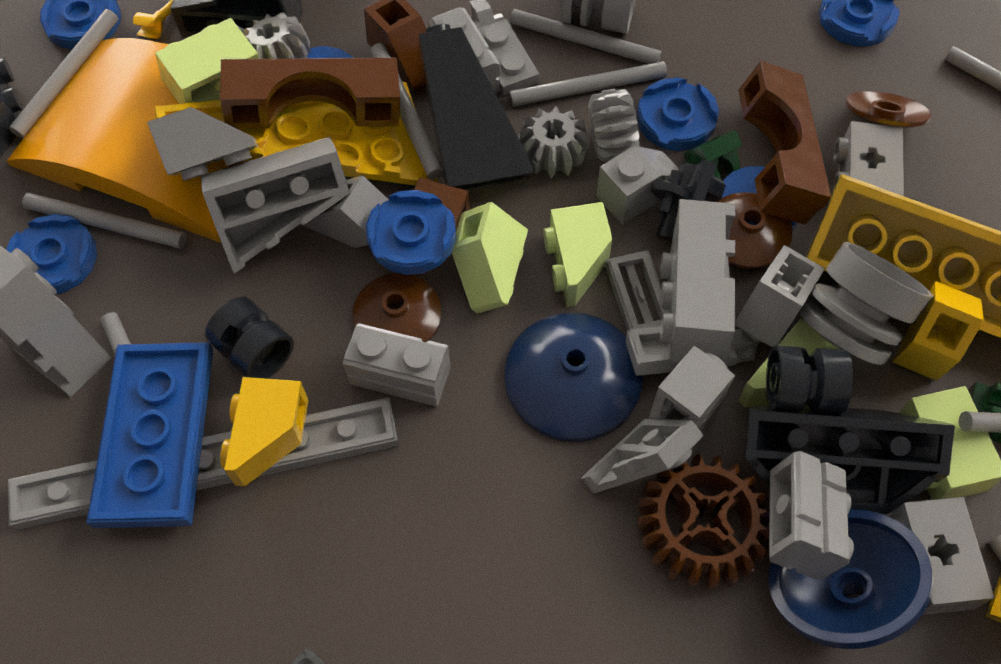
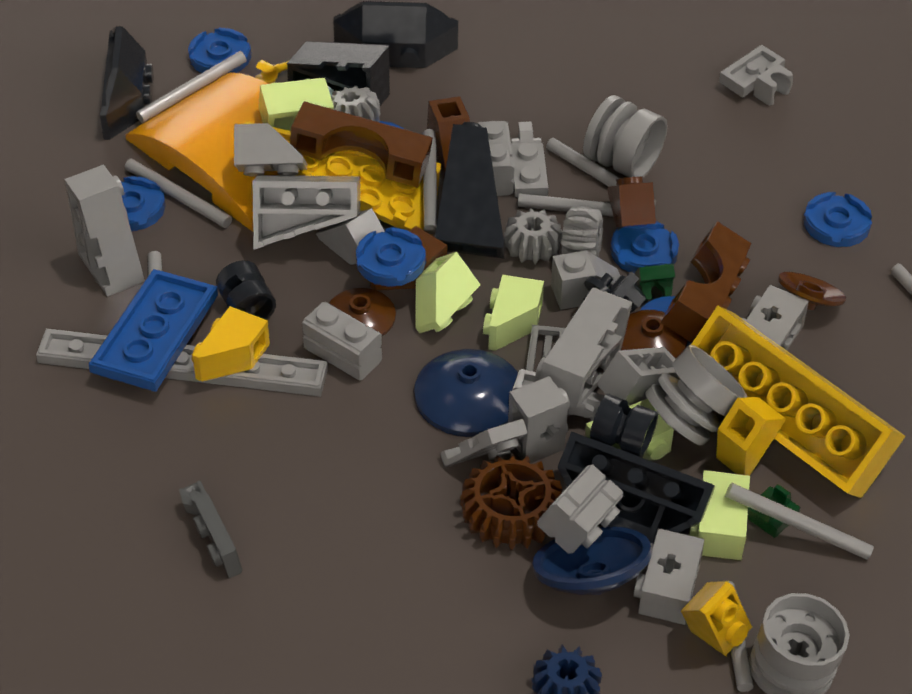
camera: 20 degrees right, 15 degrees down
(650, 65) = (632, 202): none -> reddish brown slope

